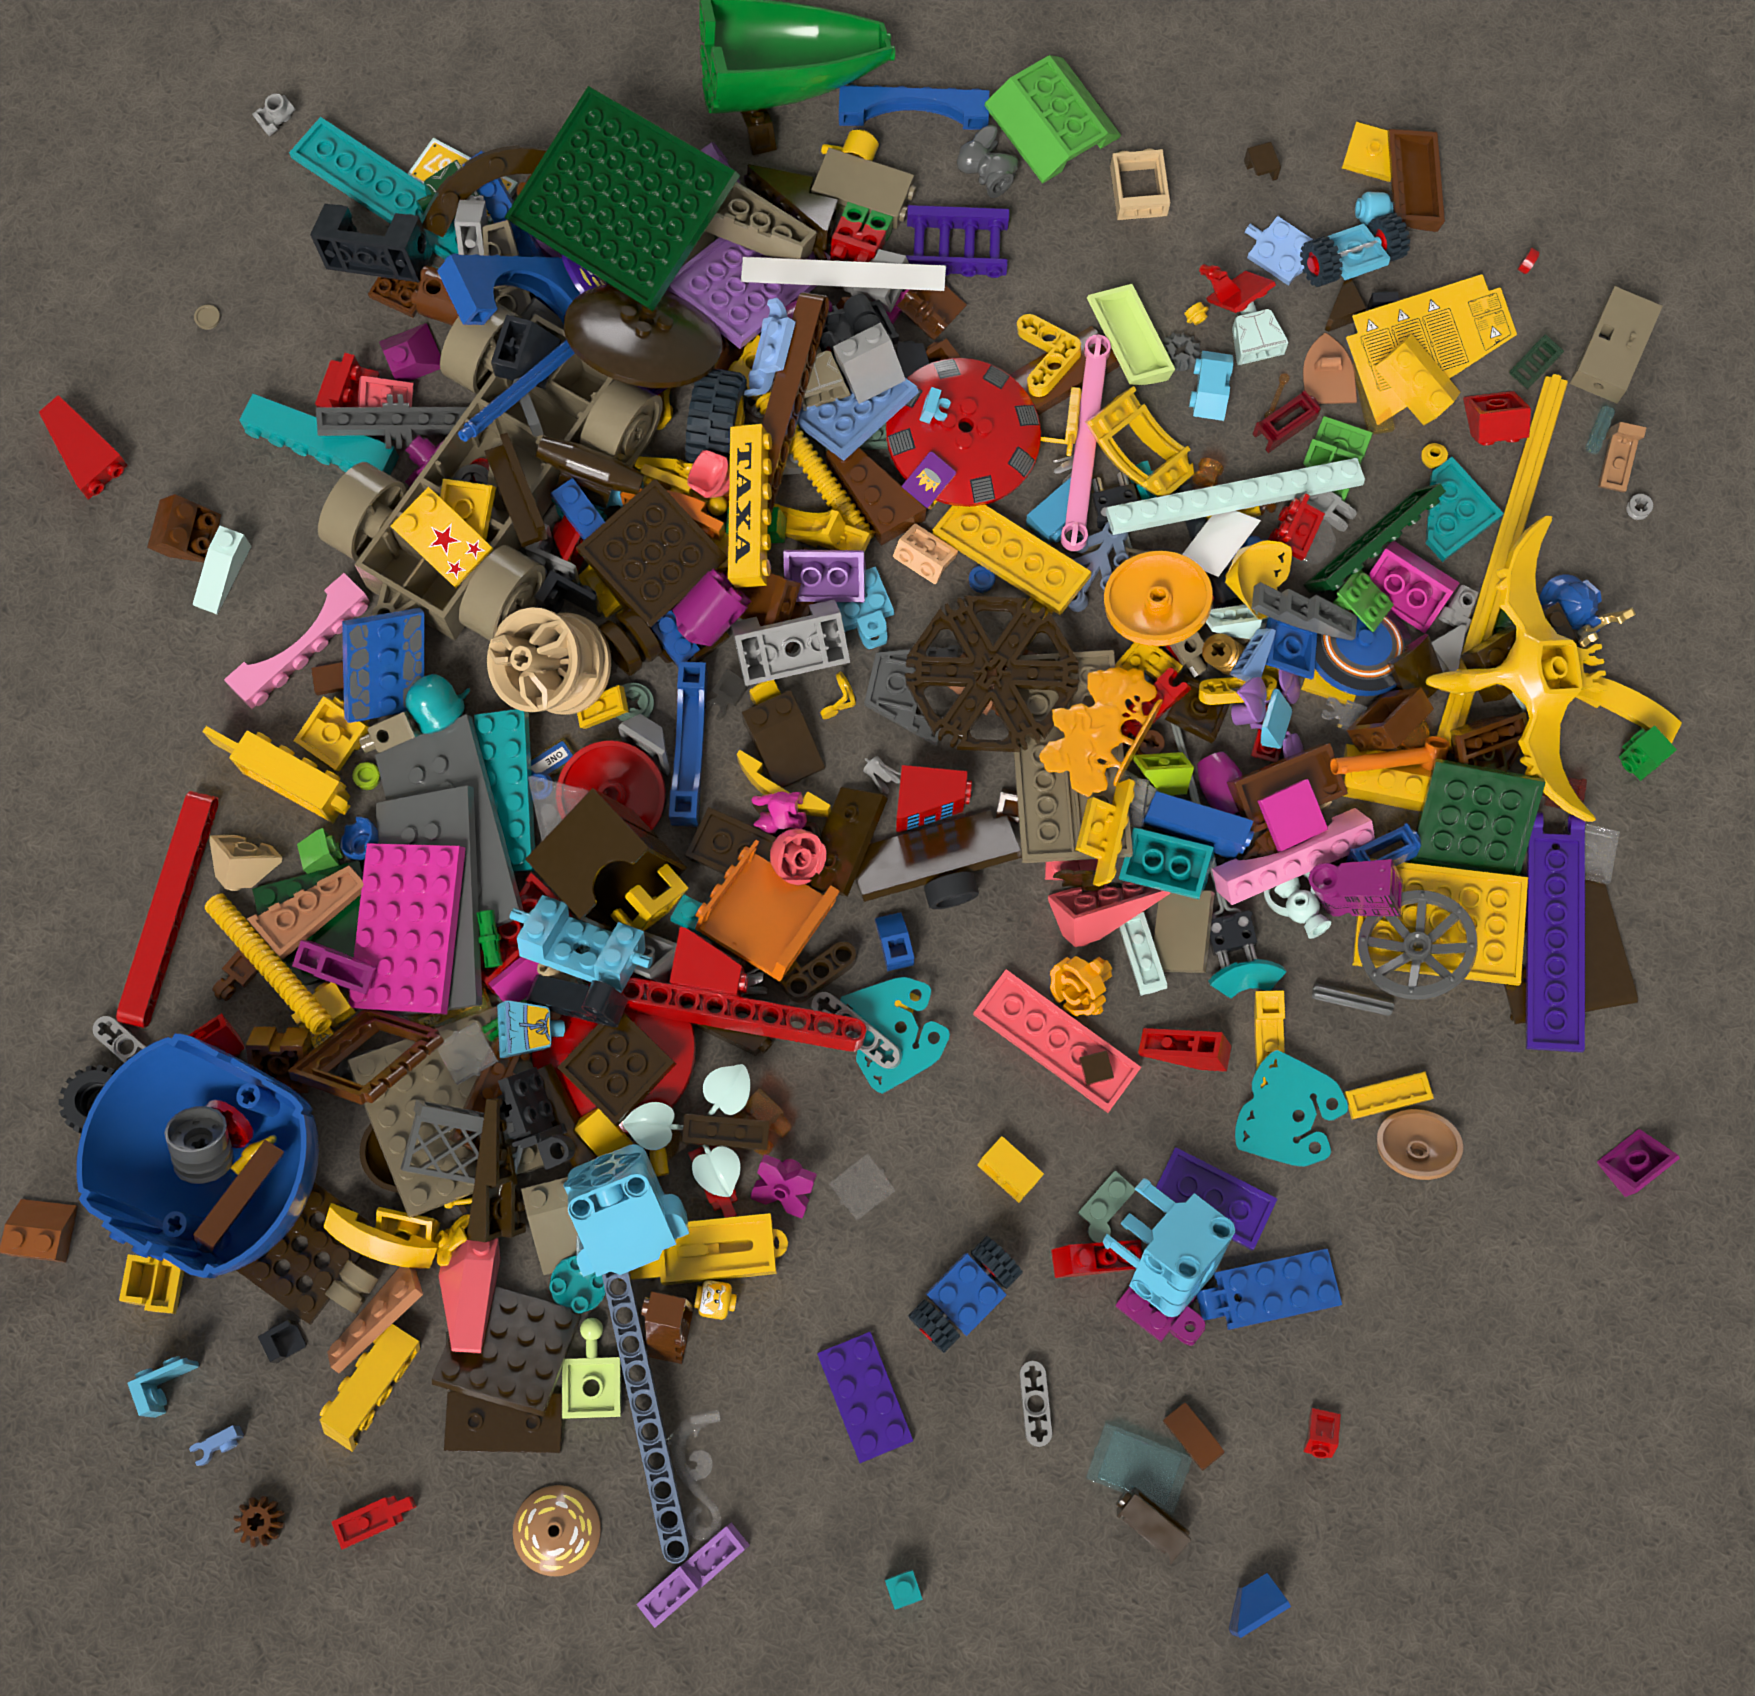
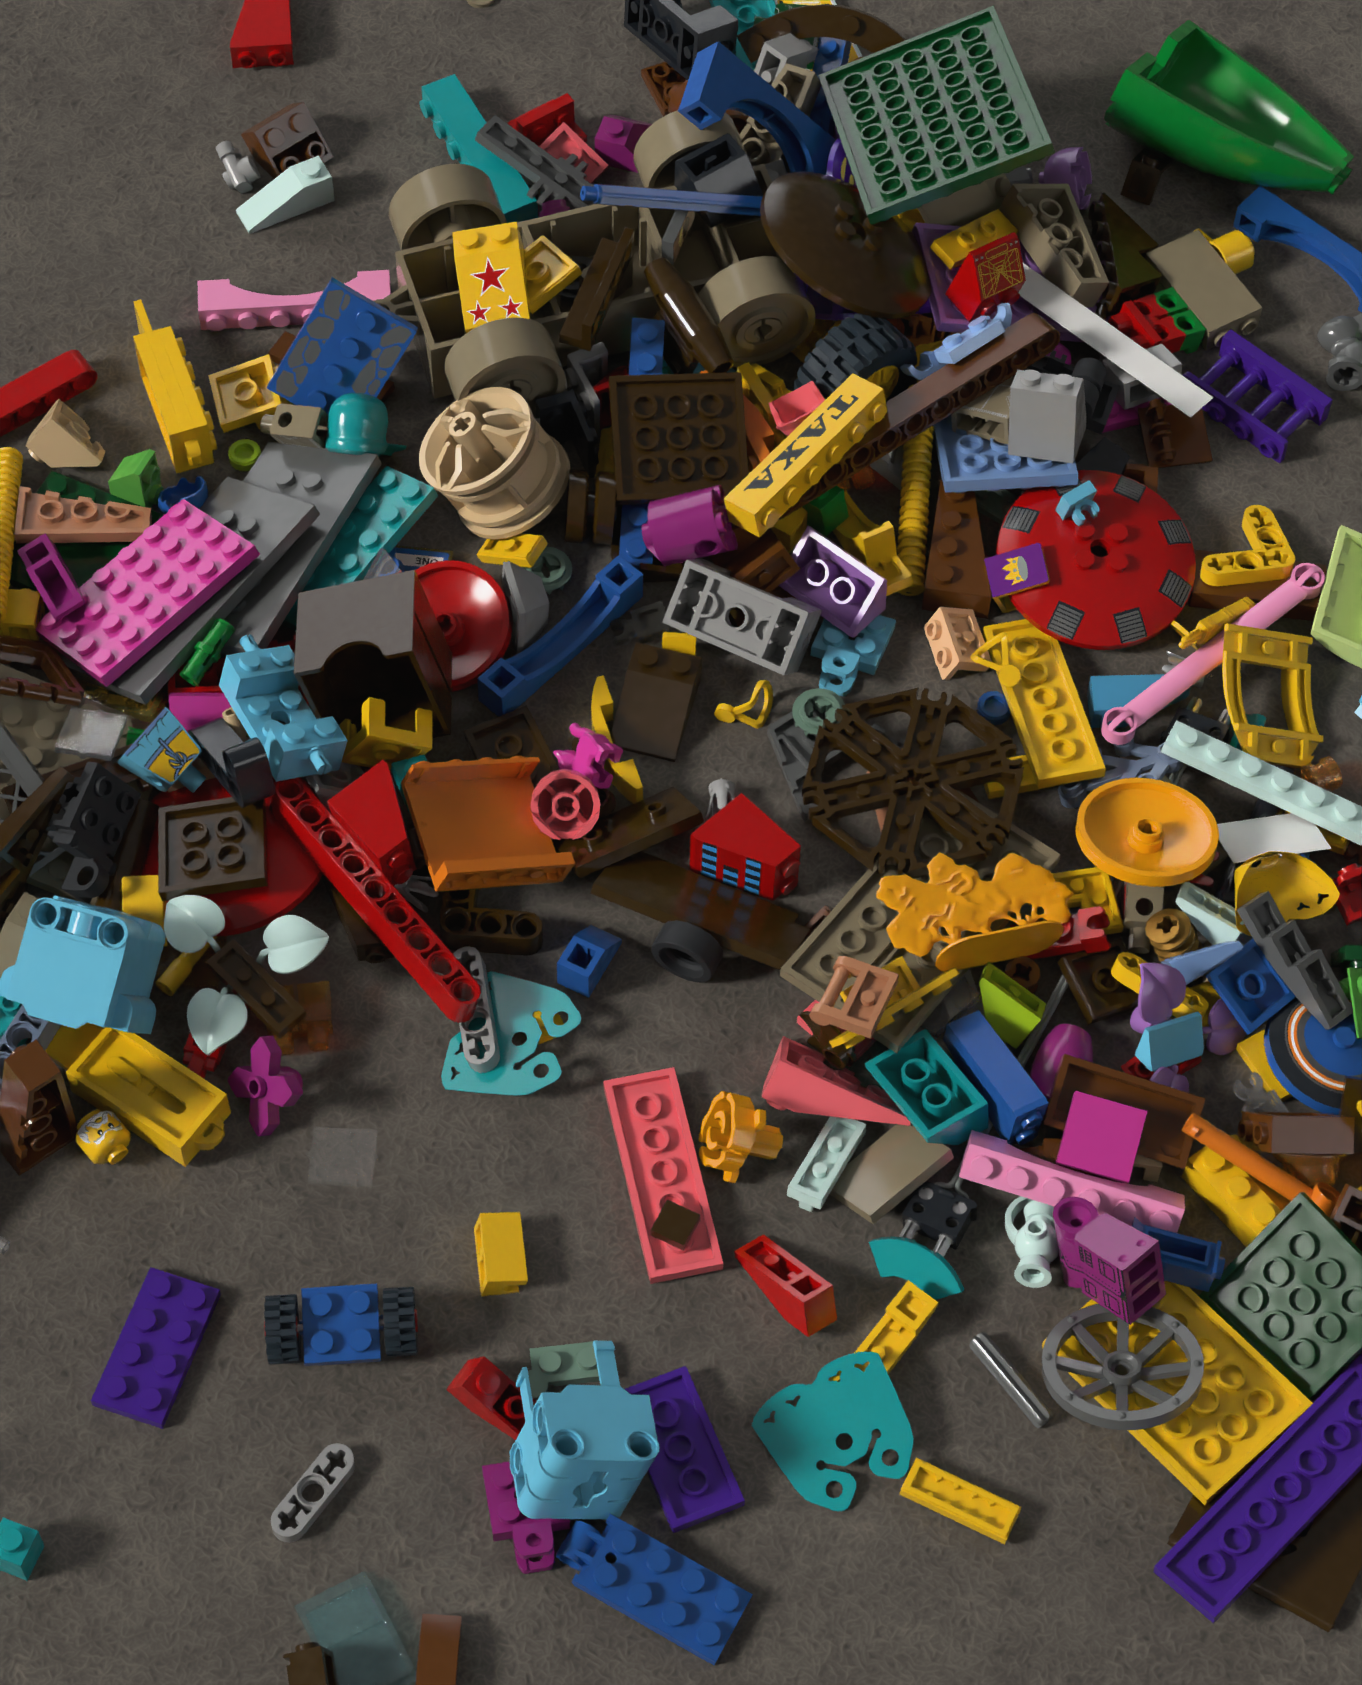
camera: 40 degrees right, 15 degrees down
(172, 575) = (240, 170): none -> light grey plate
(707, 264) = (957, 244): none -> yellow plate
(748, 290) = (988, 278): none -> red slope
(883, 659) = (820, 699): none -> sand green gear
(980, 553) = (1008, 673): none -> yellow piece
(1103, 845) = (865, 1001): none -> nougat plate
(1419, 1134) = (945, 1567): medium nougat dish -> none

